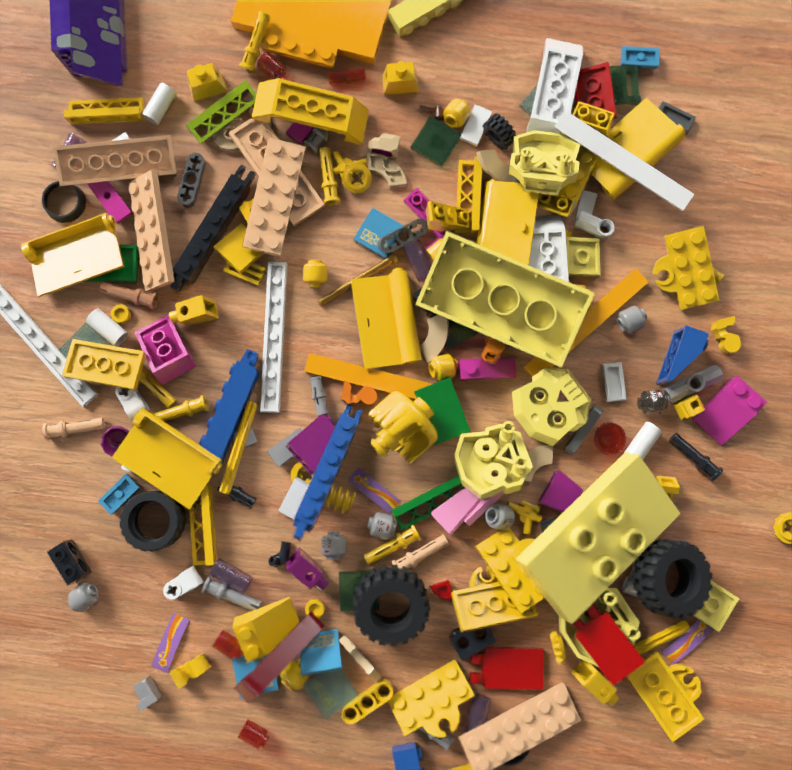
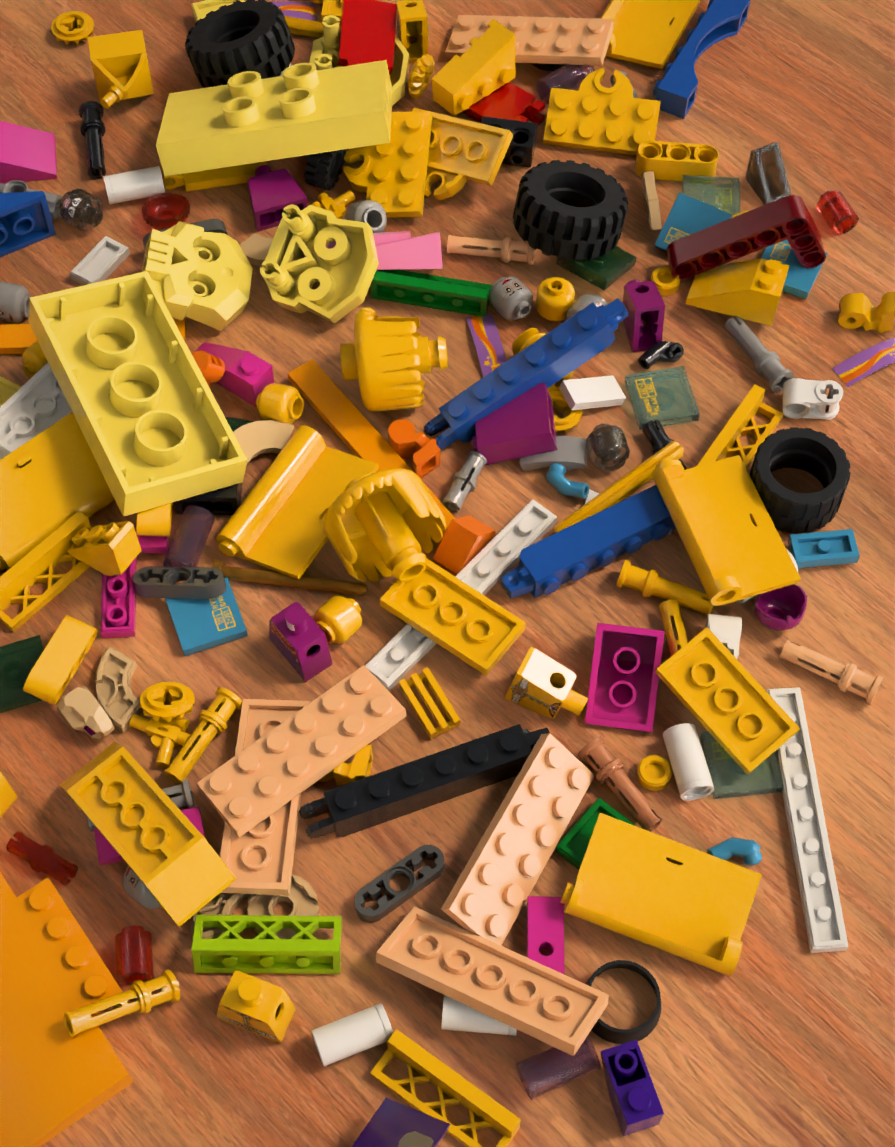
camera: 140 degrees left, 25 degrees down
(29, 162) = (631, 1088): none -> dark purple slope
(59, 305) = (737, 847): none -> dark azure arm
(227, 645) = (801, 307): clear red brick -> none
(230, 576) = (741, 366): pin -> none
(233, 252) = (418, 733): yellow tile -> none
(261, 527) = (662, 396): none -> clear light blue tile
(262, 469) = (607, 447): none -> clear smoke head
(263, 315) = (454, 616): none -> yellow plate
(275, 433) = (563, 485): none -> dark azure arm
(292, 363) = (461, 543): none -> orange slope
(307, 731) = (767, 173): none -> clear smoke slope
(324, 249) = (296, 633): none -> magenta torso
(325, 330) = (382, 523): none -> yellow piece
(363, 538) = (554, 298): none -> yellow head
(371, 556) = (492, 271): yellow pin -> none
(418, 157) = (60, 660): none -> yellow beam
(442, 590) = (497, 206): red tile -> none
(447, 410) = (318, 362): green tile -> none
(525, 671) = (477, 71): none -> yellow wedge
(669, 485) = (149, 132): yellow tile -> none
(688, 407) = (48, 173): yellow leg -> none
(723, 510) = (120, 66): none -> yellow piece

